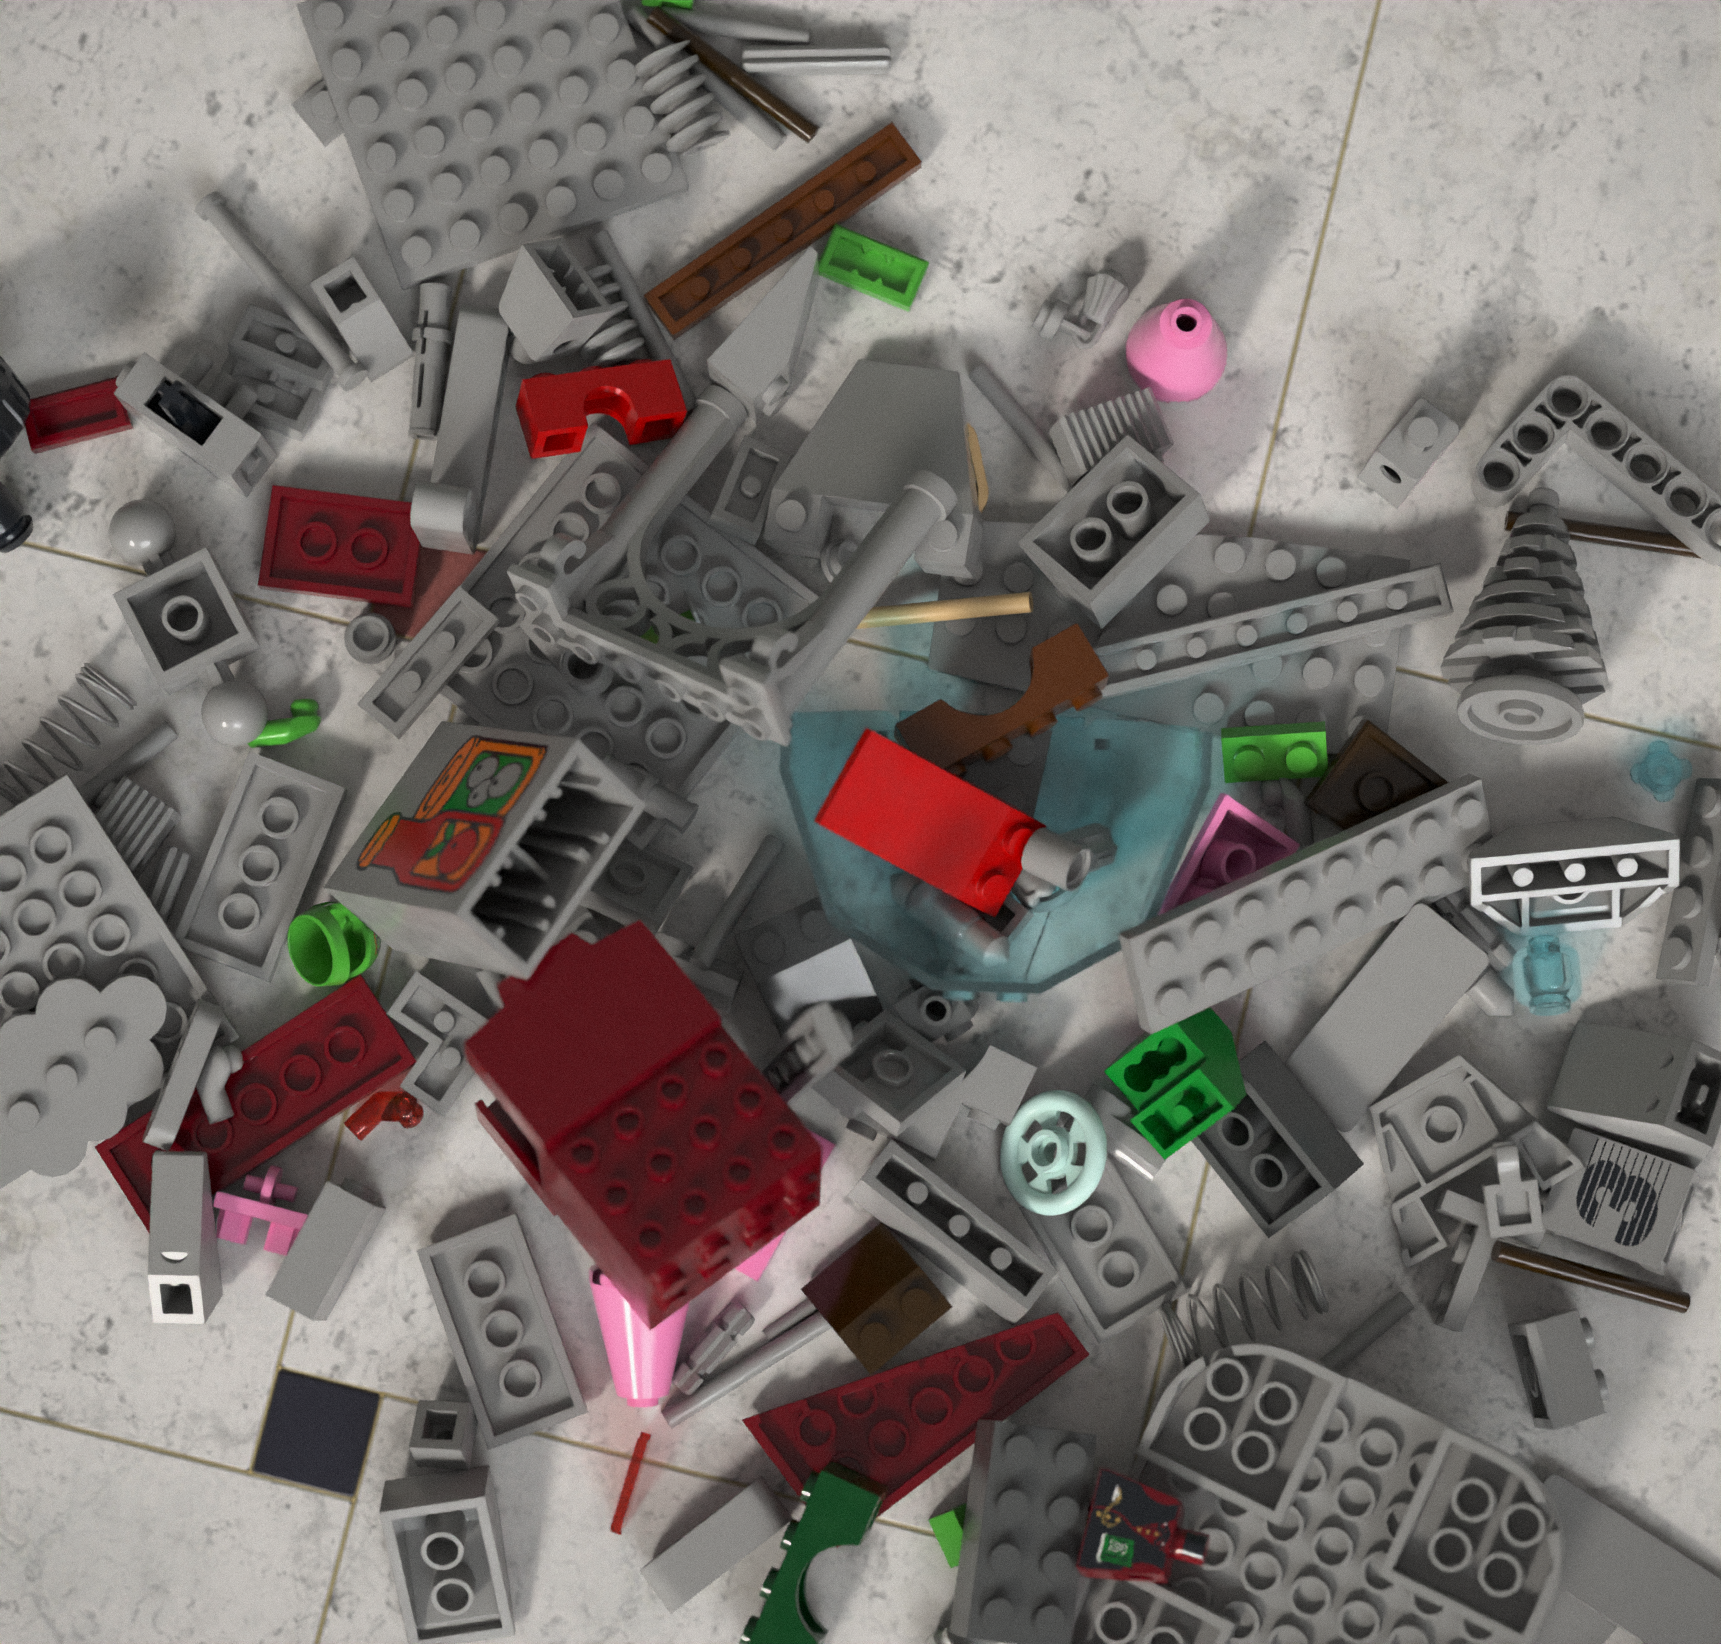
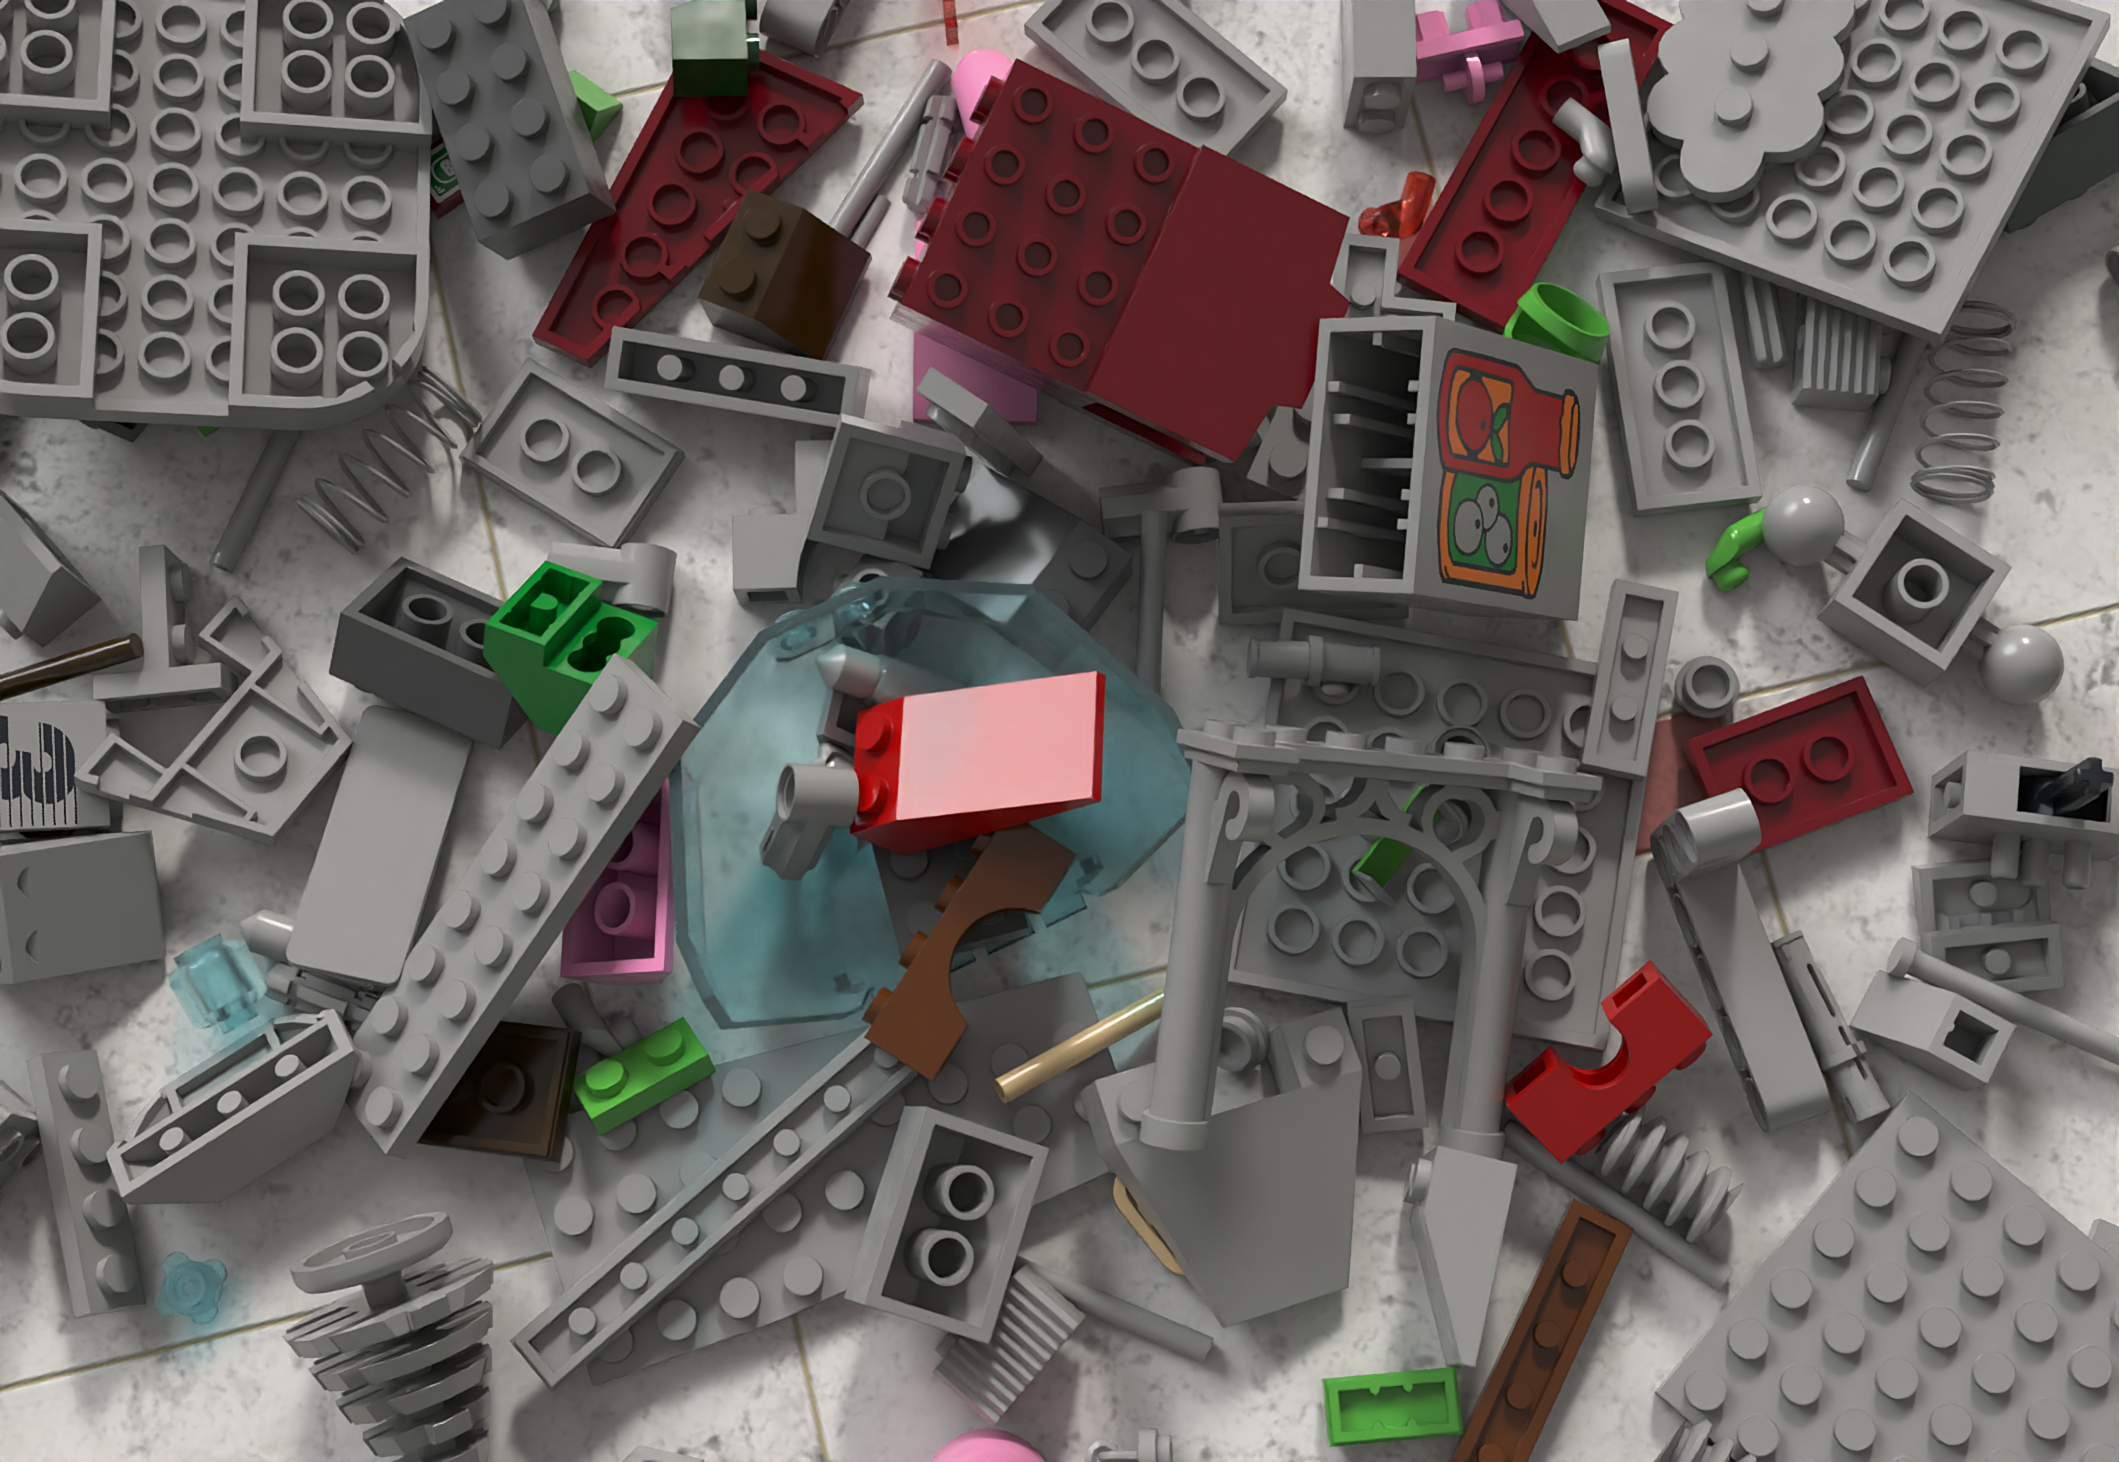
camera: 155 degrees right, 5 degrees down
(550, 303) = (1734, 1149): light grey torso -> none
(1039, 1151) = (670, 513): light aqua plate -> none
(1136, 1533) = (386, 161): torso -> none
(1511, 1201) = (139, 702): light grey plate -> none

